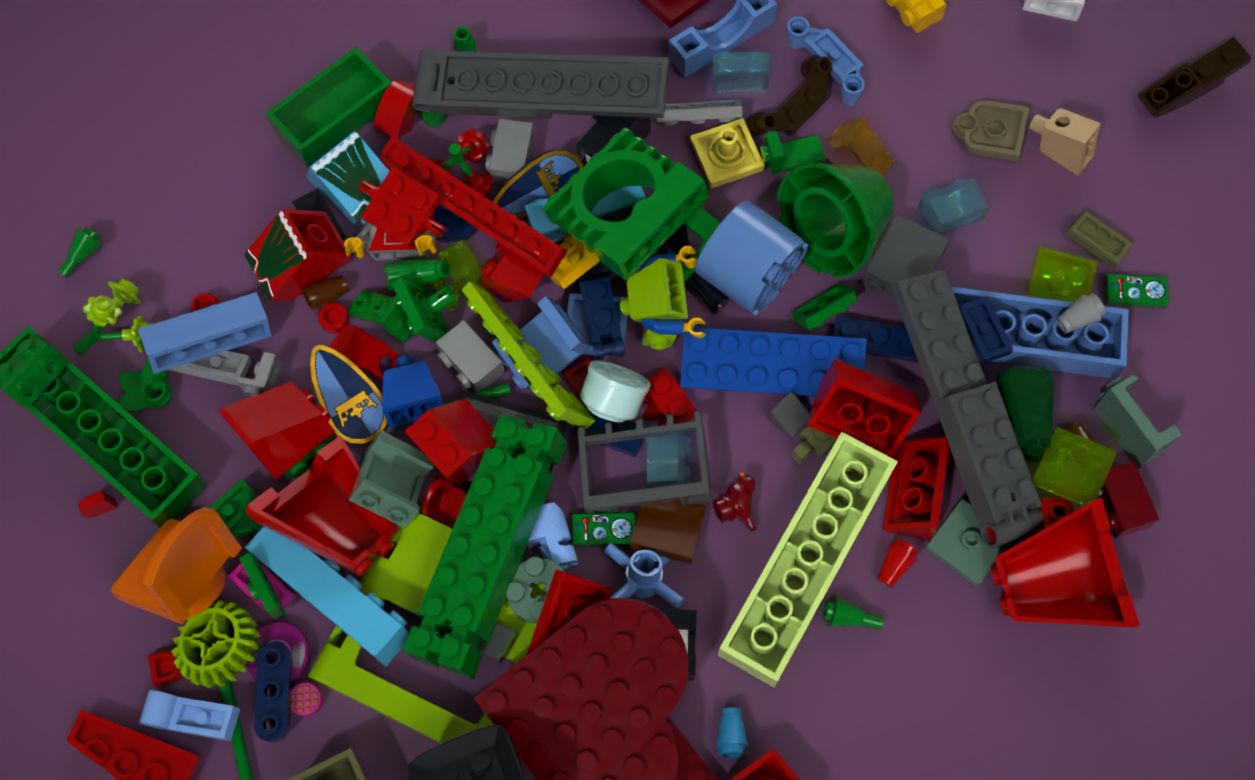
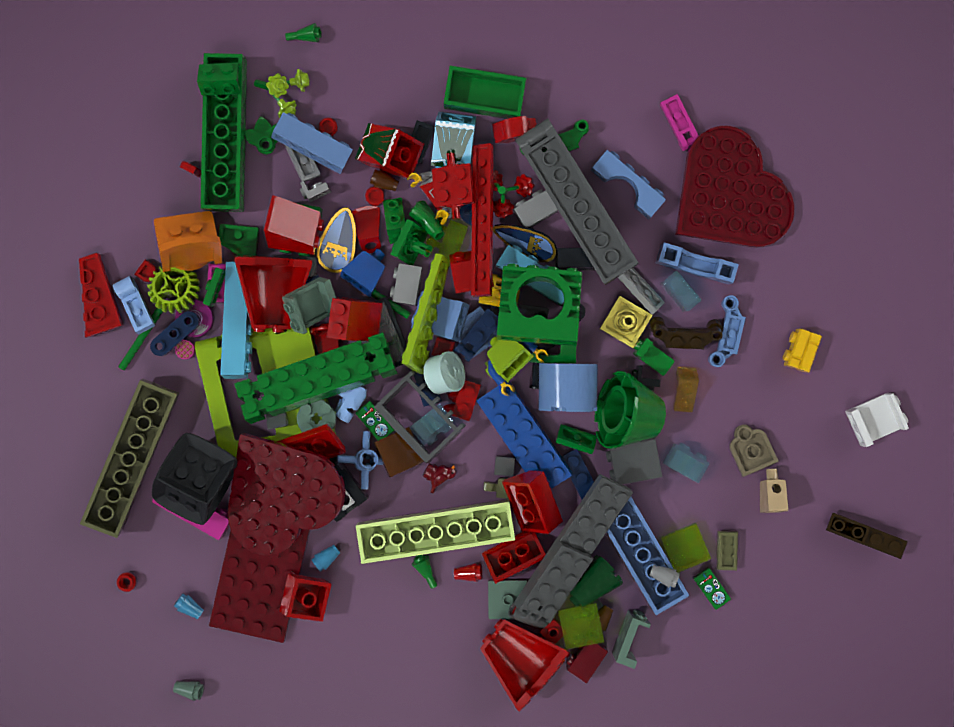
camera: 50 degrees right, 20 degrees up
(601, 31) = (647, 199): none -> medium blue arch
(985, 330) = (618, 534): dark blue plate -> none

